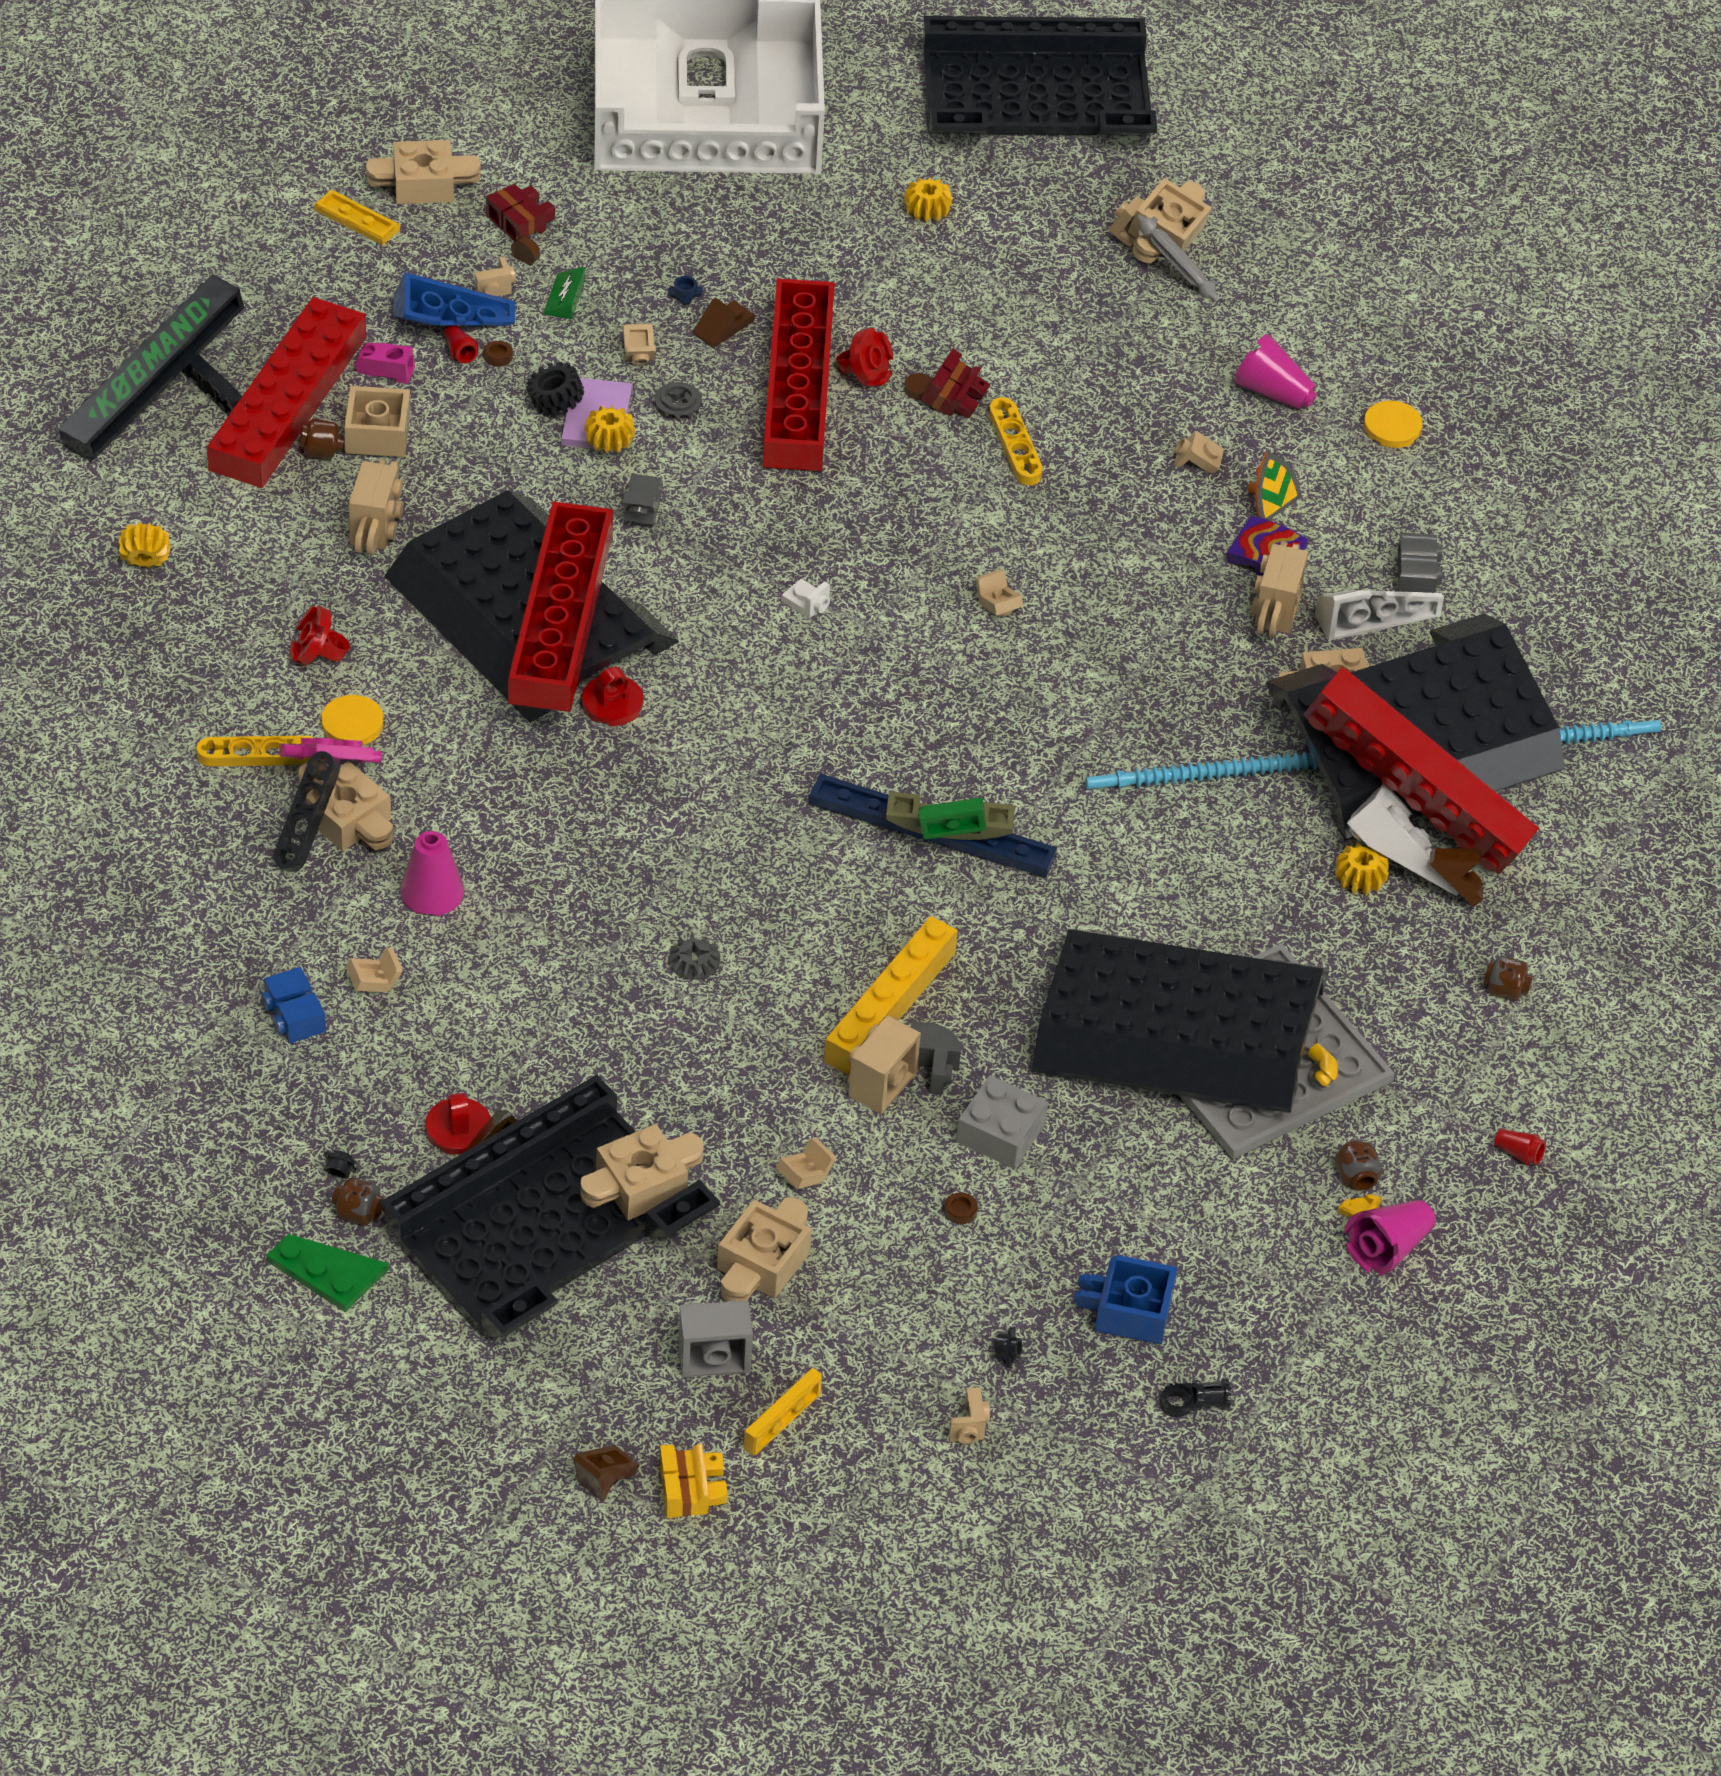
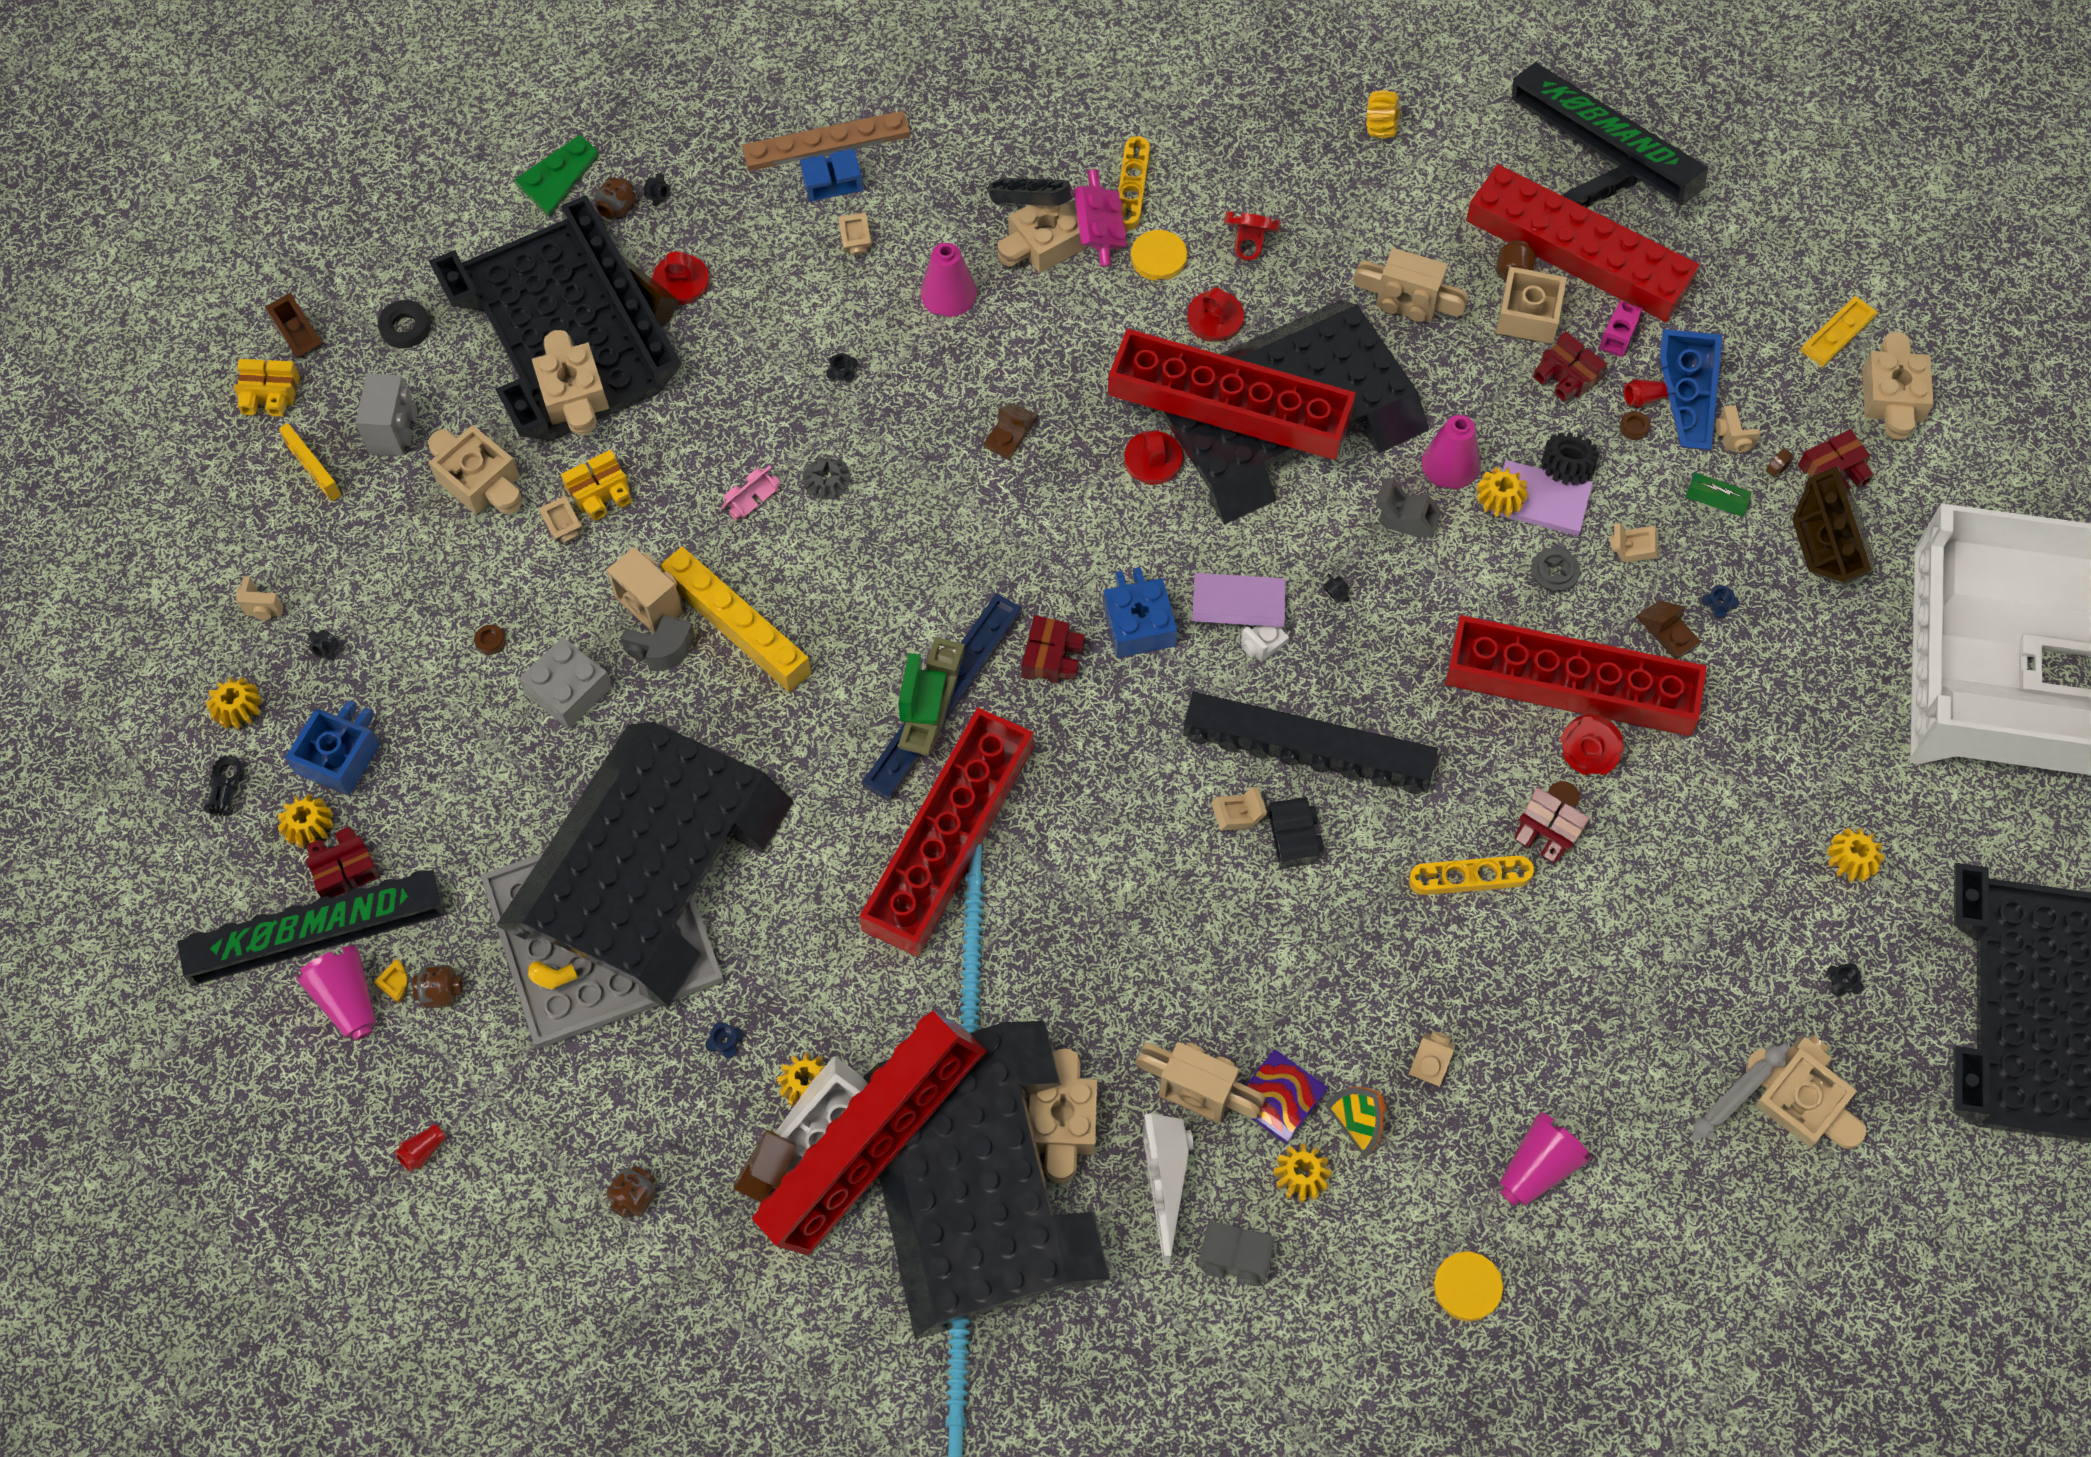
camera: 105 degrees right, 15 degrees up
(238, 1026) = (825, 140): none -> medium nougat plate
(424, 666) = (1215, 315): none -> red tile
(442, 394) = (1571, 367): none -> dark red hips
(554, 956) = (842, 360): none -> black plate
(569, 466) = (1453, 454): none -> dark pink cone
(571, 1354) = (400, 309): none -> black tyre
(598, 813) = (1010, 430): none -> reddish brown slope
(602, 210) = (1832, 529): none -> dark brown wedge
(729, 1016) = (741, 499): none -> bright pink hinge
(739, 547) = (1336, 588): none -> black plate
(752, 1142) = (610, 485): none -> yellow hips
(770, 615) = (1239, 600): none -> lavender tile
(807, 683) = (1139, 615): none -> blue hinge
(853, 740) = (1047, 649): none -> dark red hips
(914, 554) = (1310, 742): none -> black brick
(1015, 554) = (1294, 832): none -> black brick
(1045, 207) = (1846, 971): none -> black plate
(1085, 793) = (947, 832): none -> red brick
(1099, 1409) = (234, 702): none -> yellow gear
(1217, 1312) = (317, 817): none -> yellow gear
(1259, 1269) = (328, 863): none -> dark red hips
(1331, 1279) = (311, 927): none -> black brick
(1333, 526) = (1298, 1183): none -> yellow gear
(1341, 932) = (720, 1031): none -> dark blue plate

